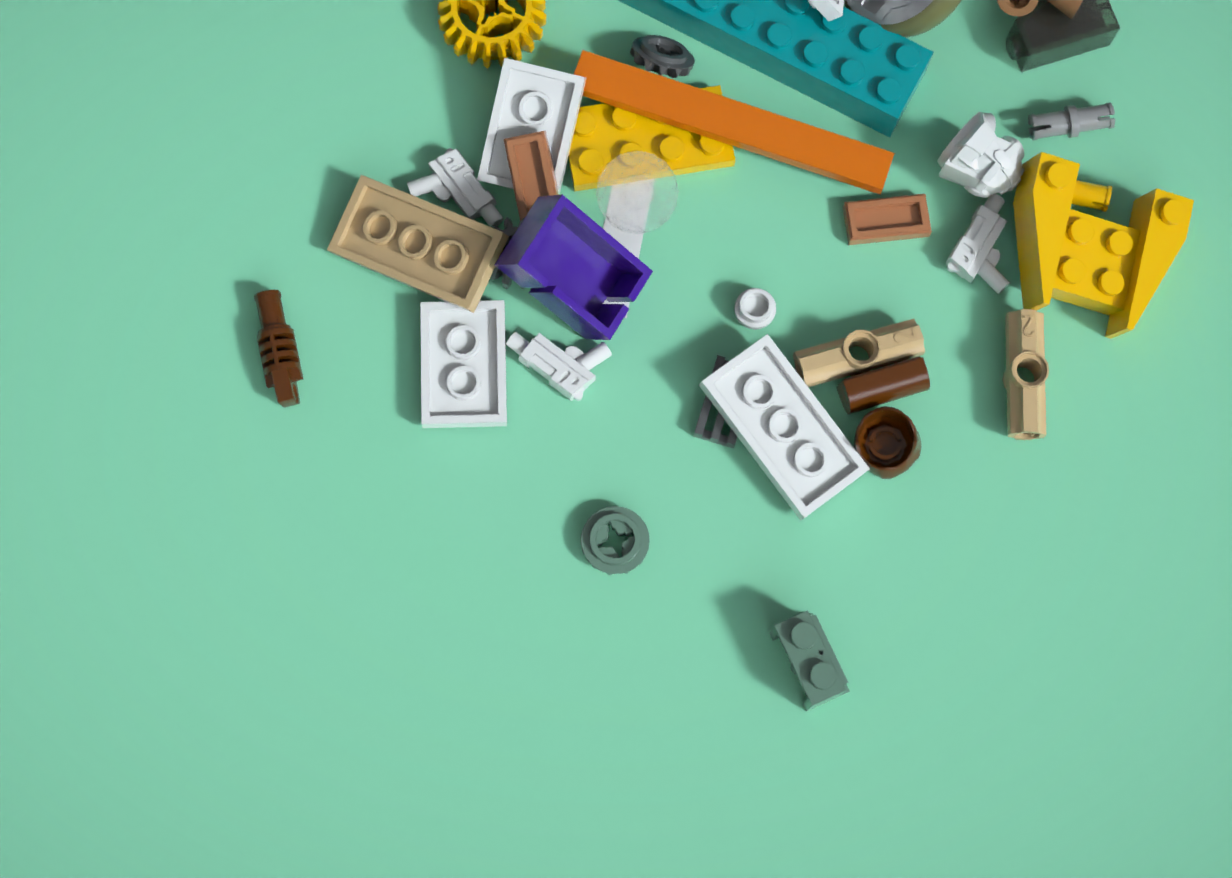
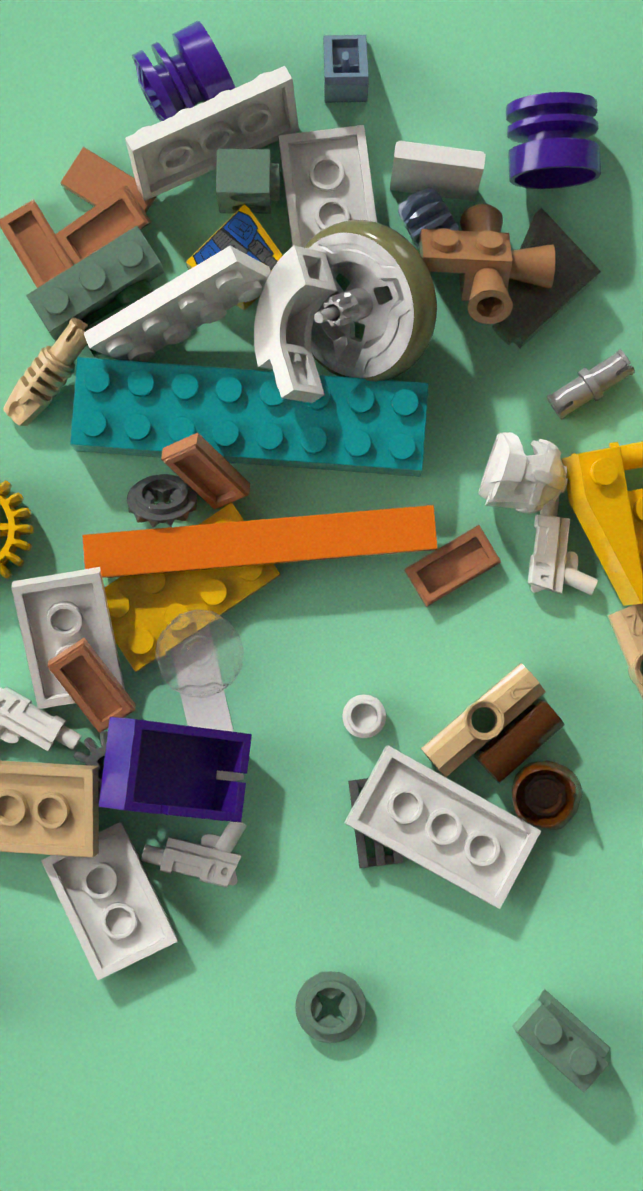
camera: 20 degrees left, 10 degrees up
(711, 44) = (205, 471): none -> nougat tile

